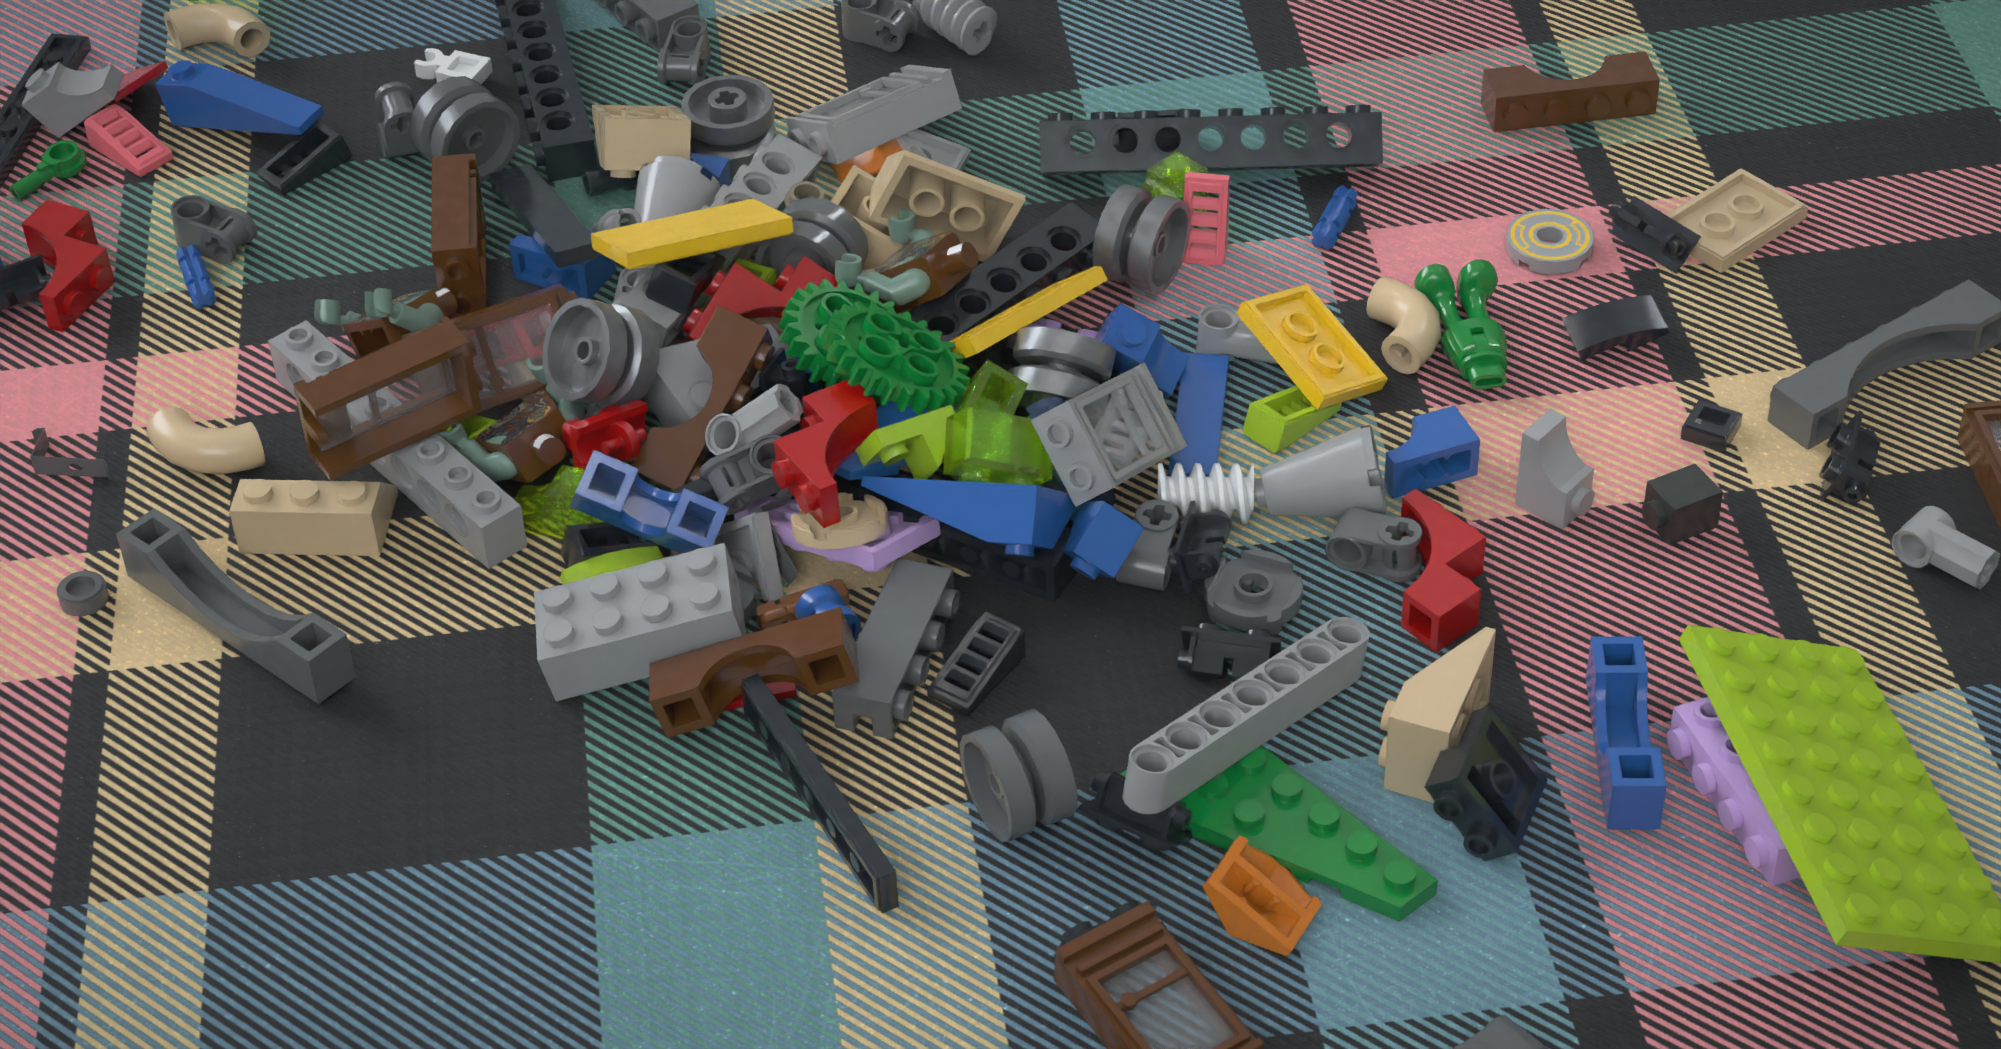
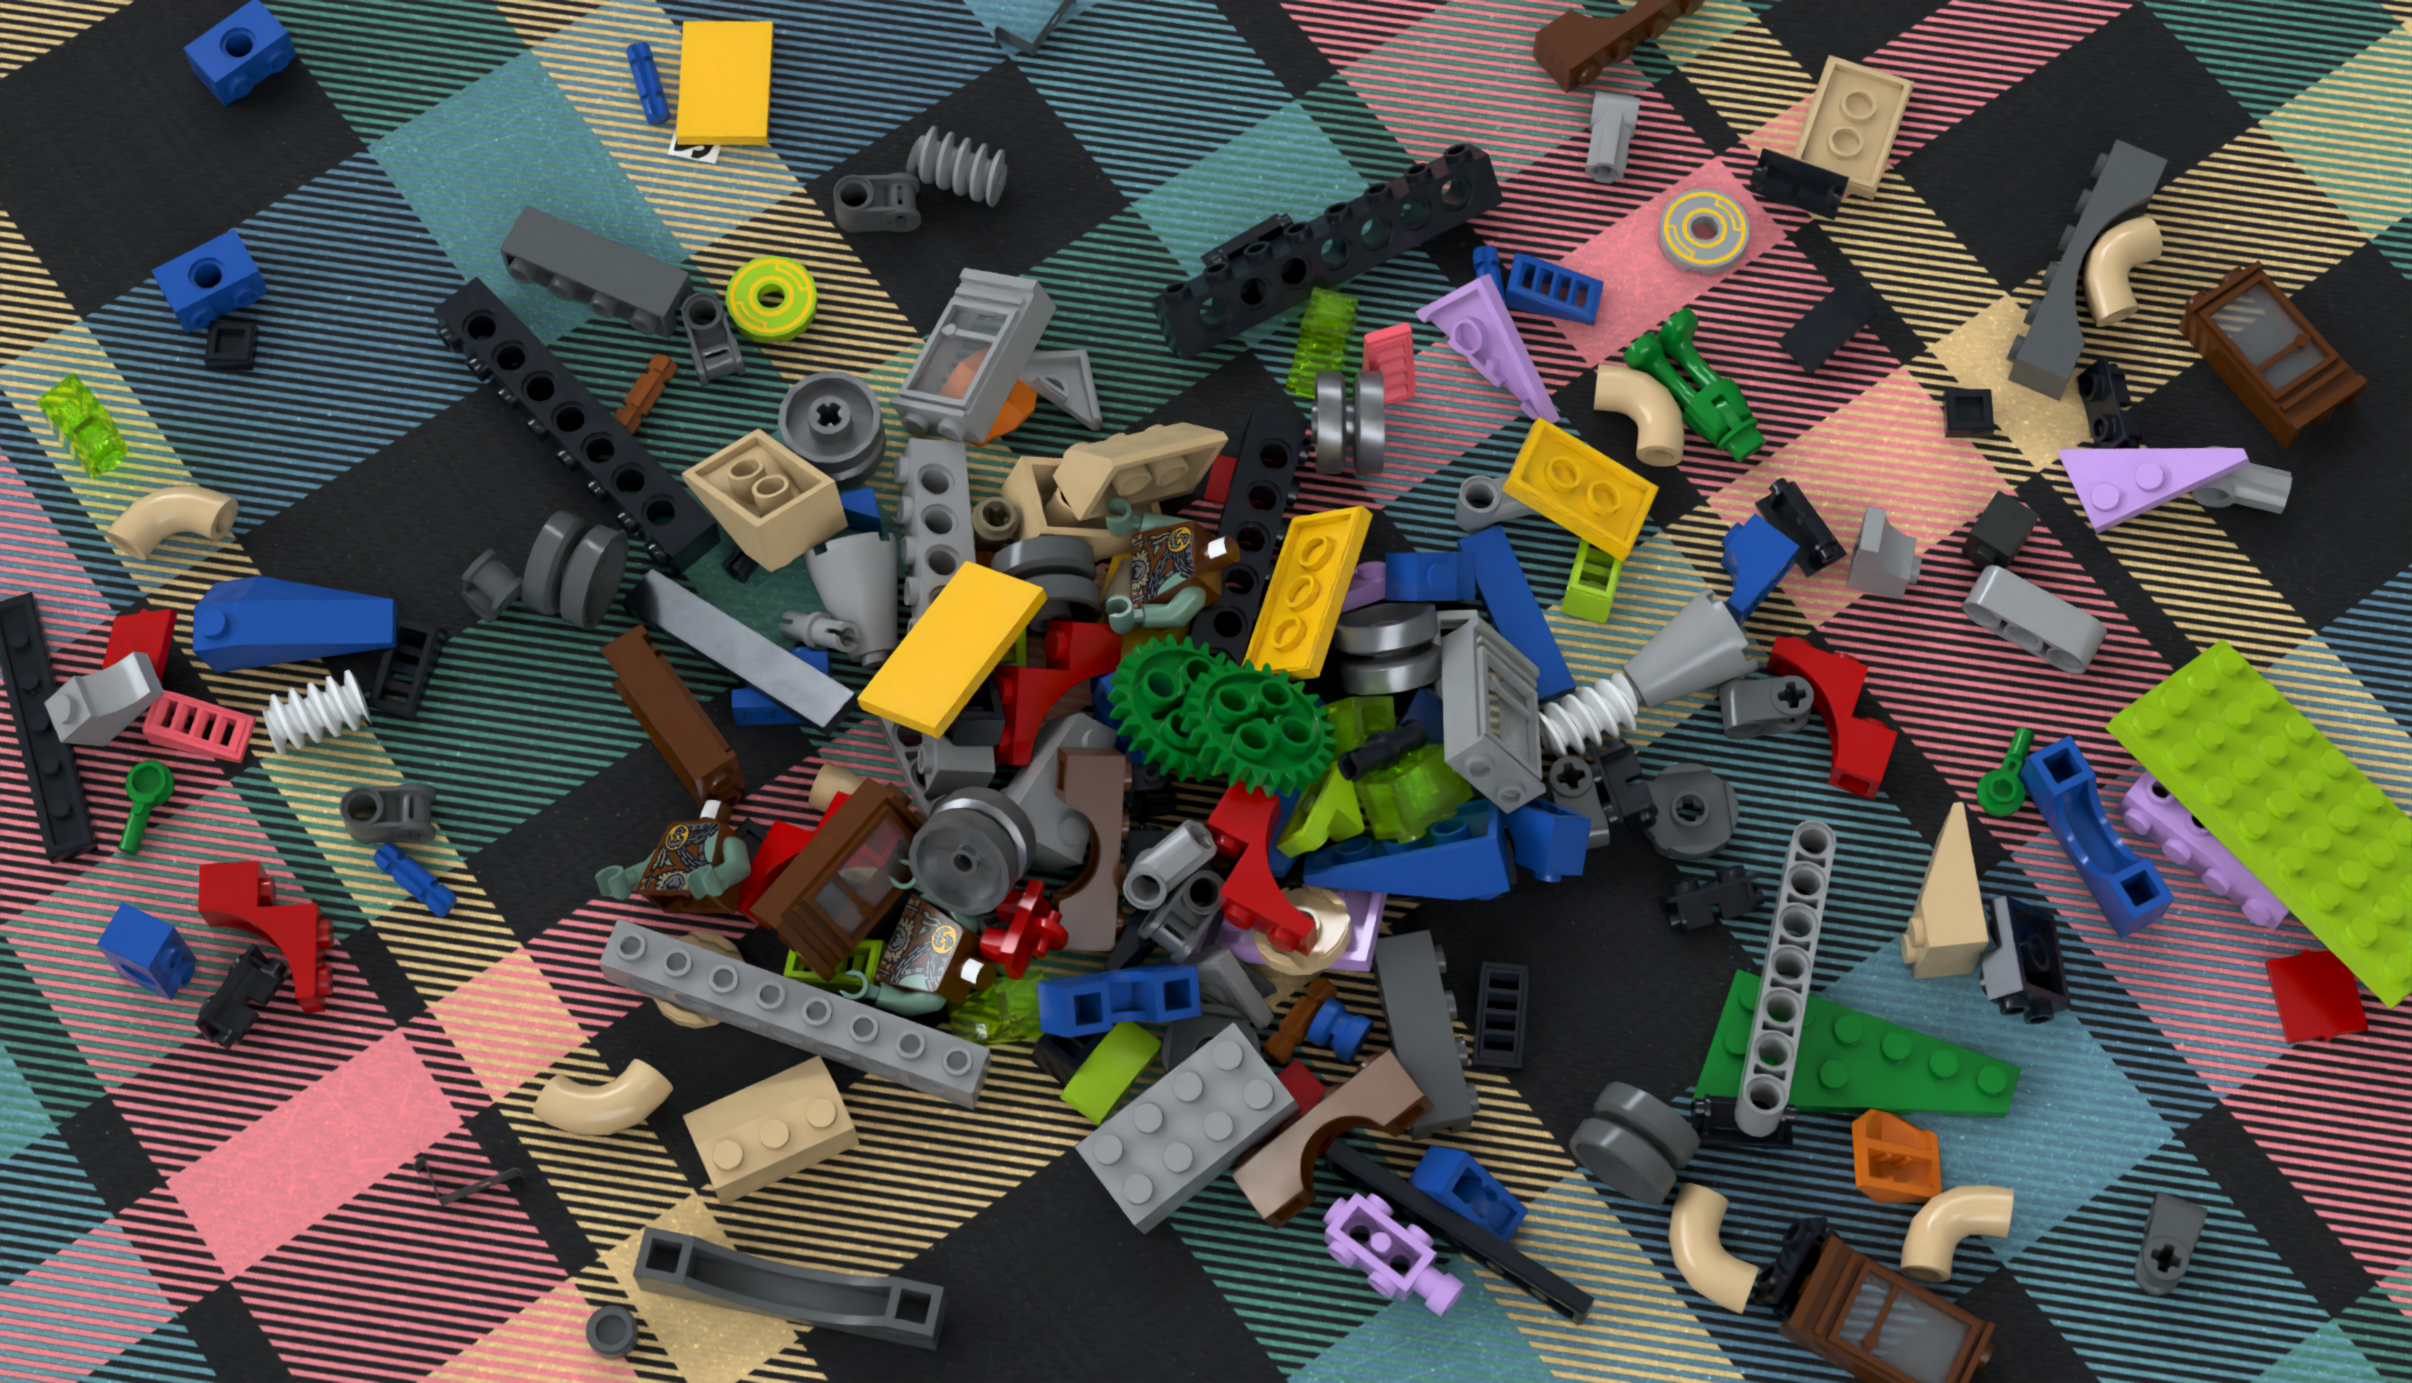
camera: 30 degrees left, 25 degrees up
(212, 157) = (315, 713): none -> white piece
(389, 398) = (813, 1007): reddish brown door -> none
(455, 65) = (482, 467): white plate -> none
(613, 71) = (646, 392): none -> dark orange axle
(744, 778) = (1385, 1245): none -> lavender brick
(770, 48) = (764, 277): none -> lime tile
(851, 763) = (1469, 1190): none -> blue arch
(963, 395) = (1382, 750): none -> black pin
(1026, 892) = (1699, 1252): none -> tan cylinder
(1285, 961) = (1949, 1219): none -> tan cylinder
(1304, 235) = (1489, 339): none -> lavender wing
(1372, 224) = (1544, 272): none -> blue slope
(1498, 440) = (1797, 519): none -> black hinge
(1511, 152) = (1611, 127): none -> light grey piece
(1561, 682) = (2001, 790): none -> green plate
(1675, 573) = (2034, 619): none -> light grey beam
(1782, 948) = (2315, 996): none -> red piece
(1832, 509) = (2131, 481): none -> lavender wing
(1912, 362) = (2109, 265): none -> tan cylinder

